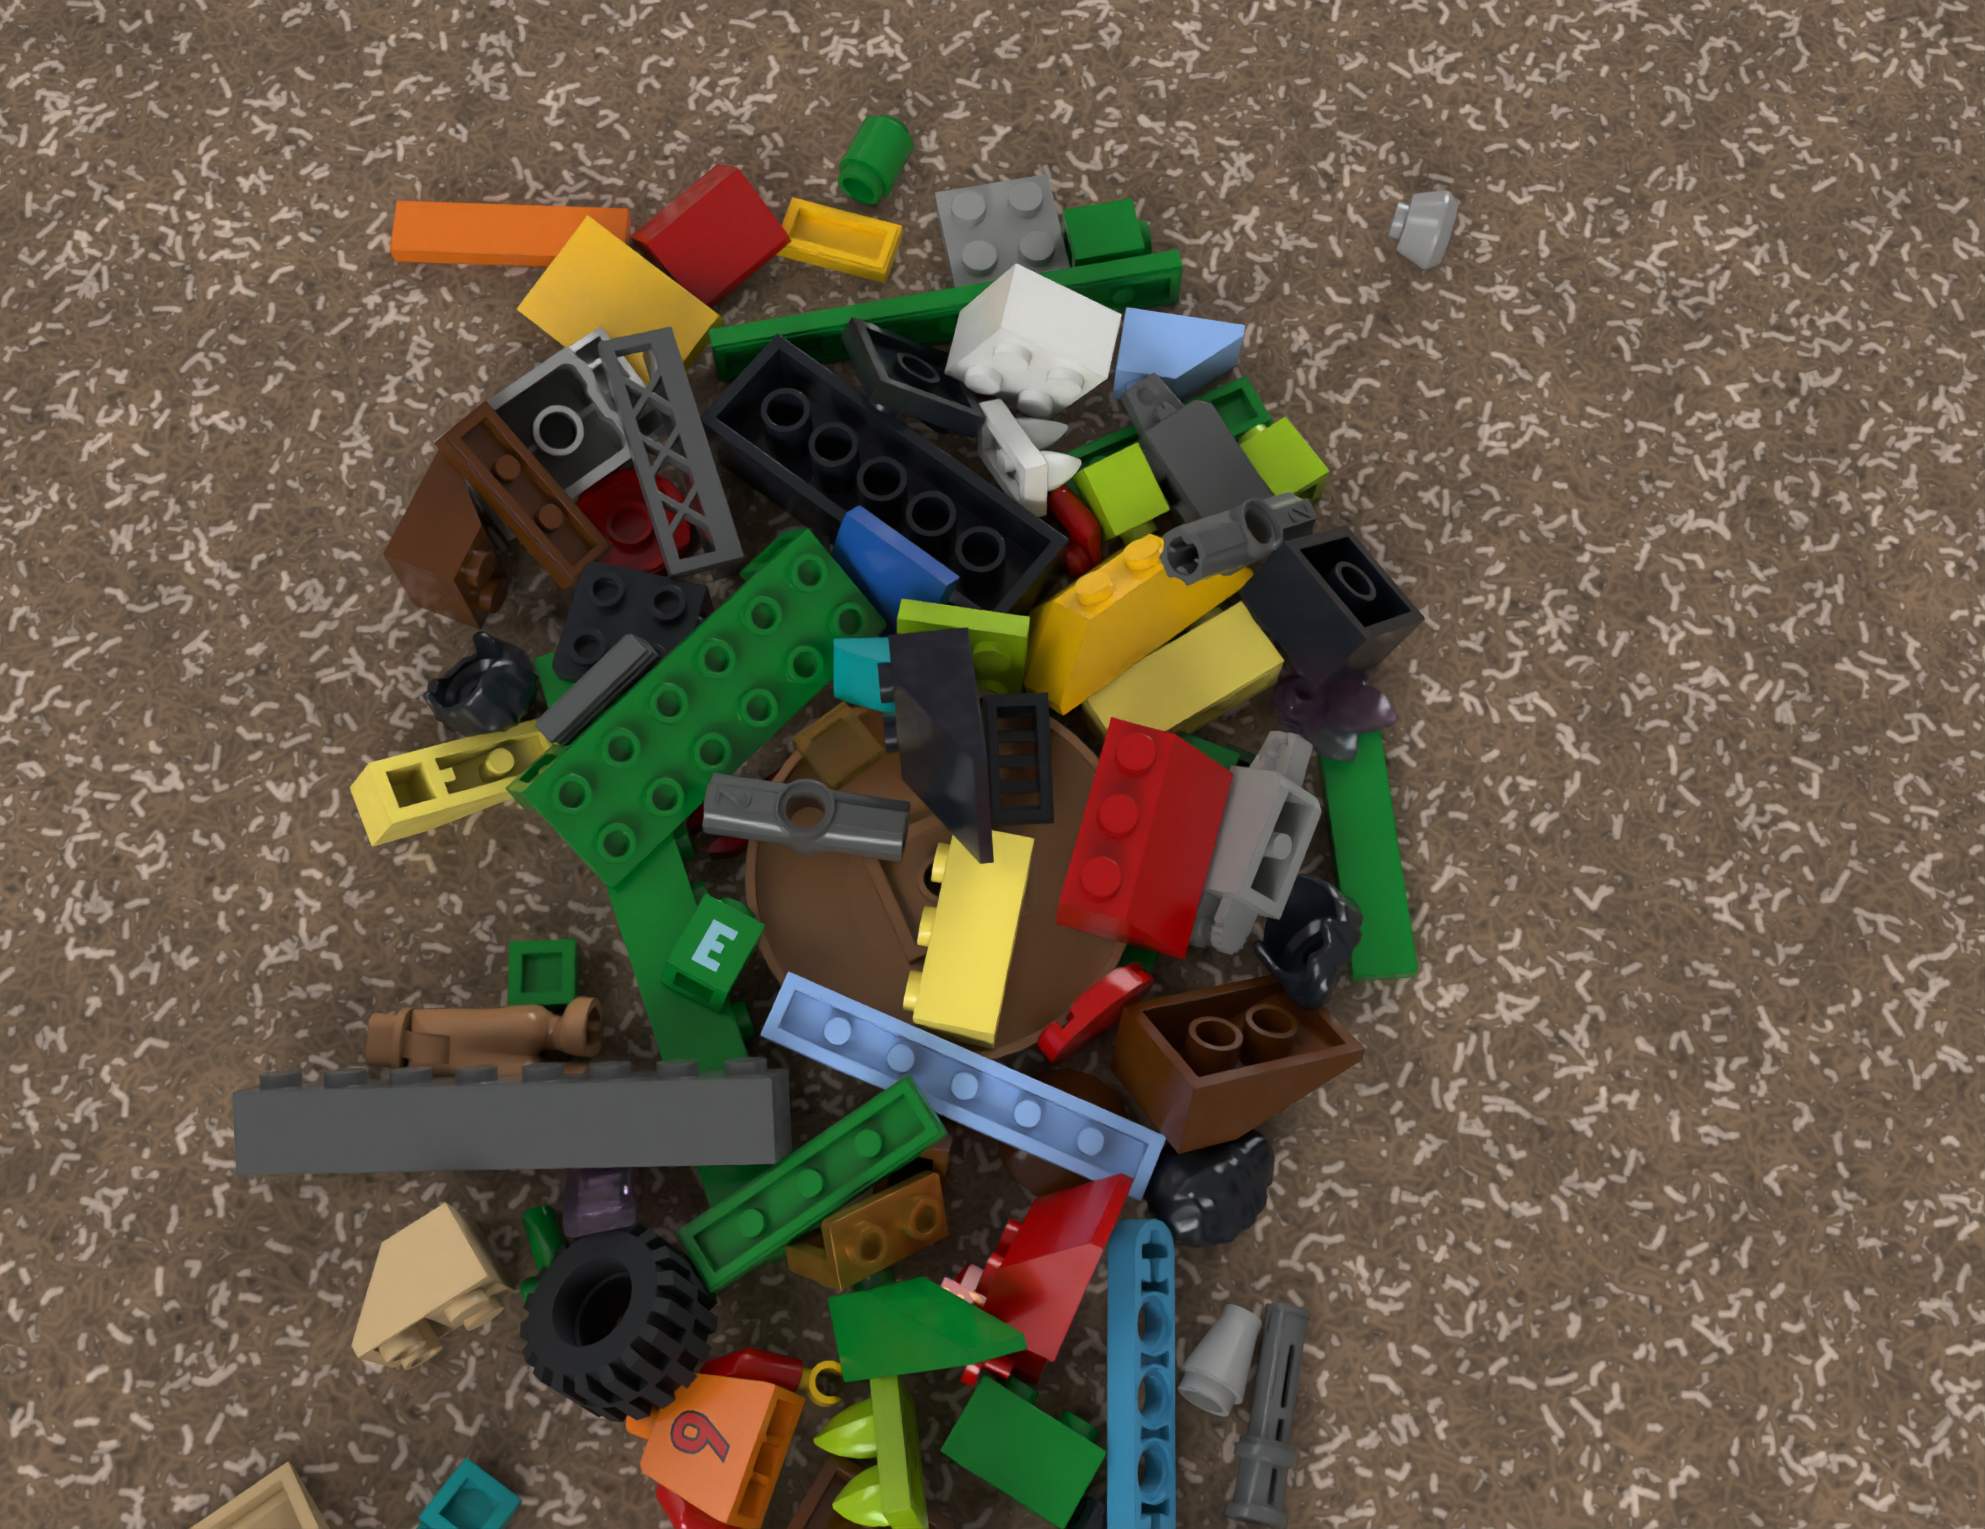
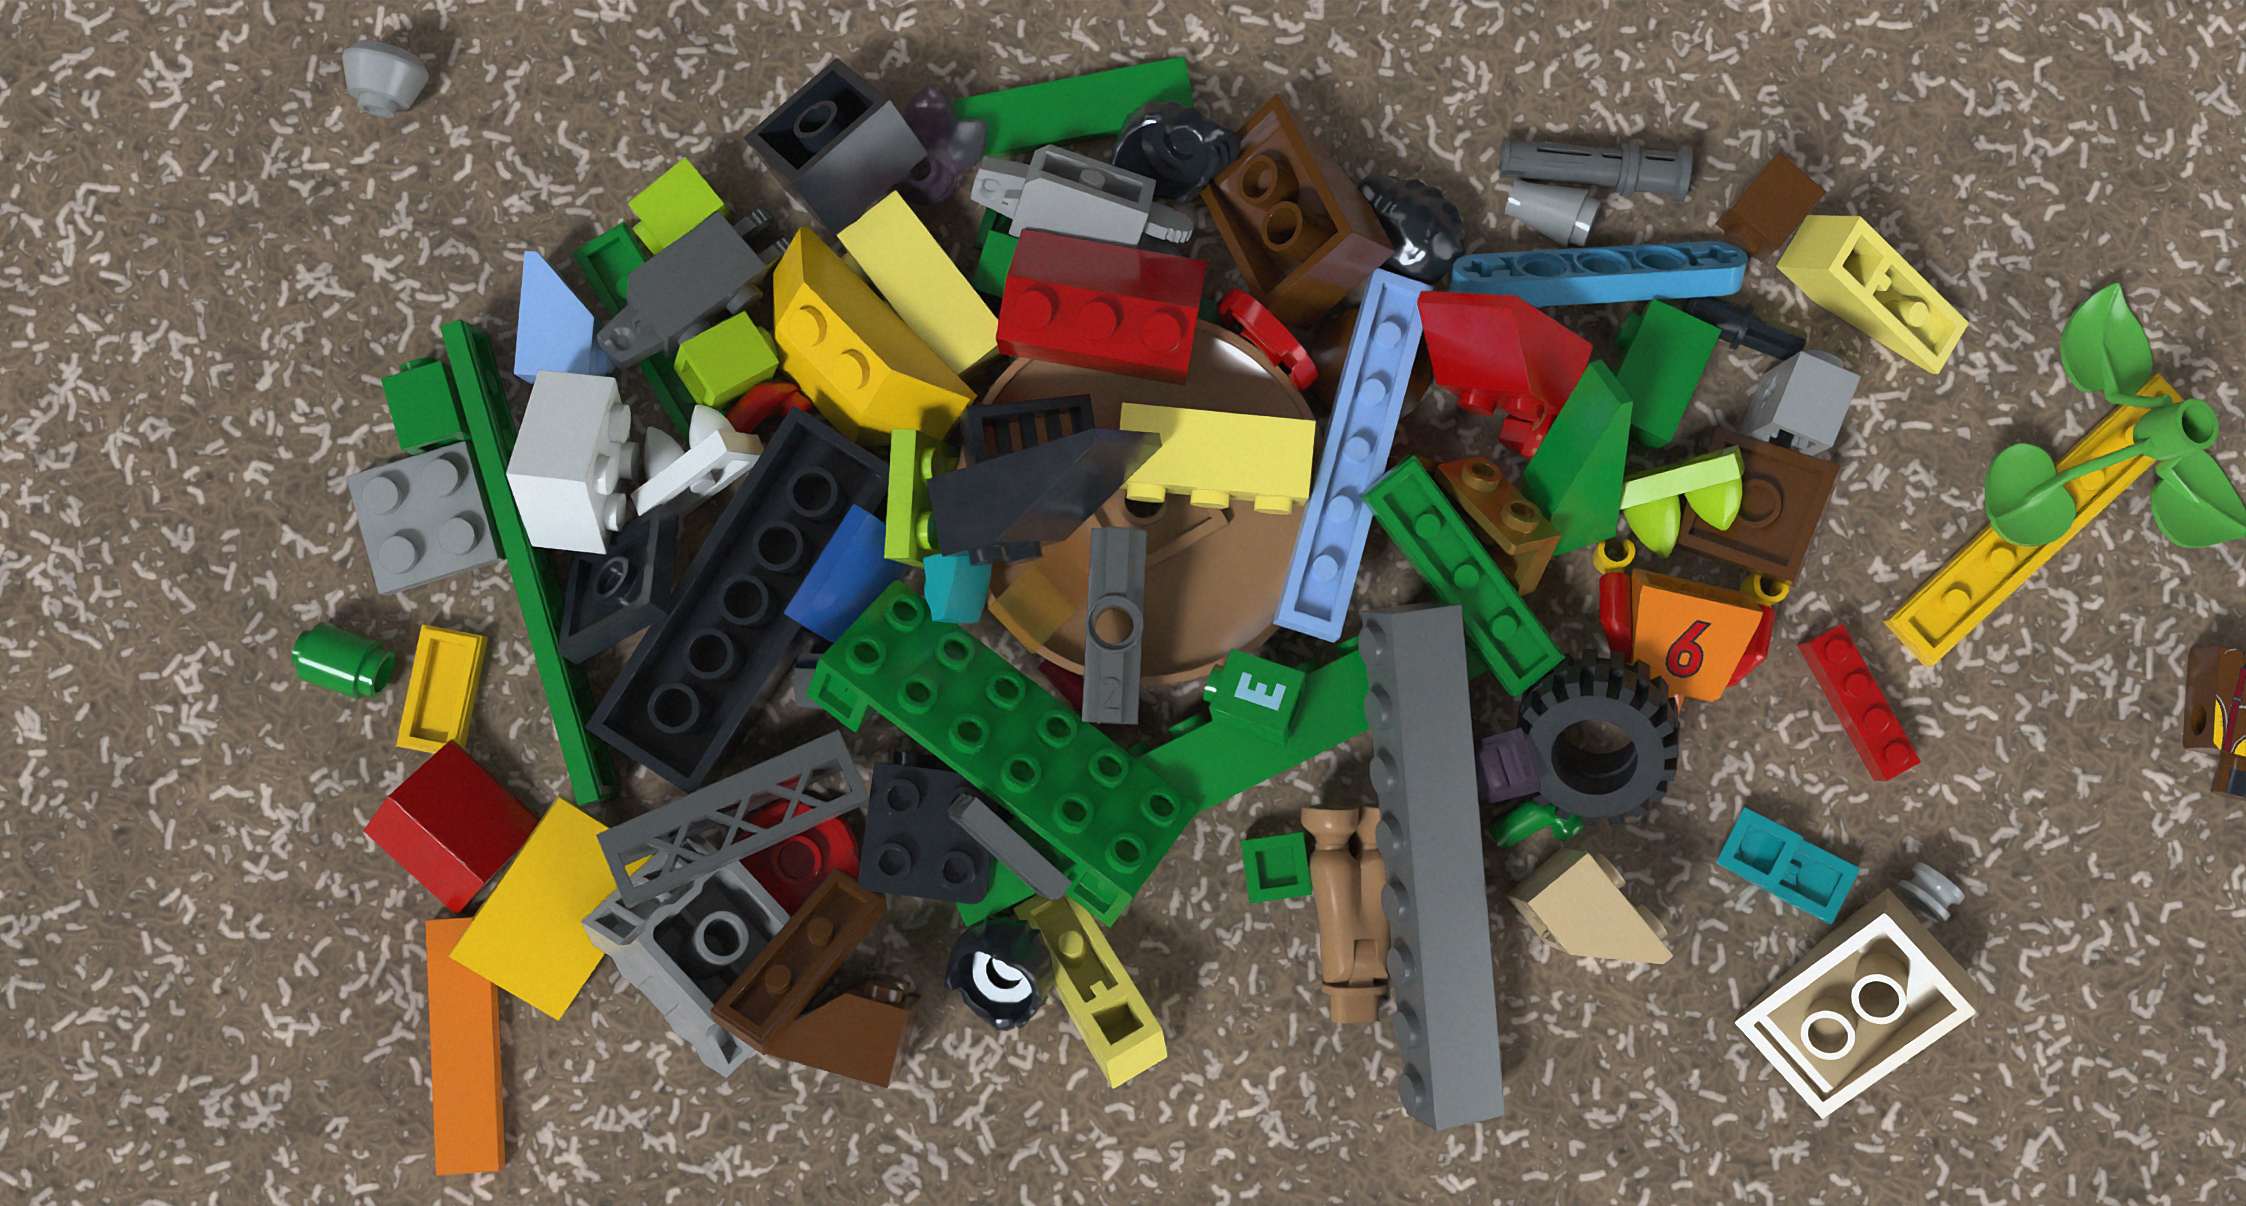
camera: 90 degrees left, 15 degrees up
(1235, 537) = (785, 233): dark grey piece -> none

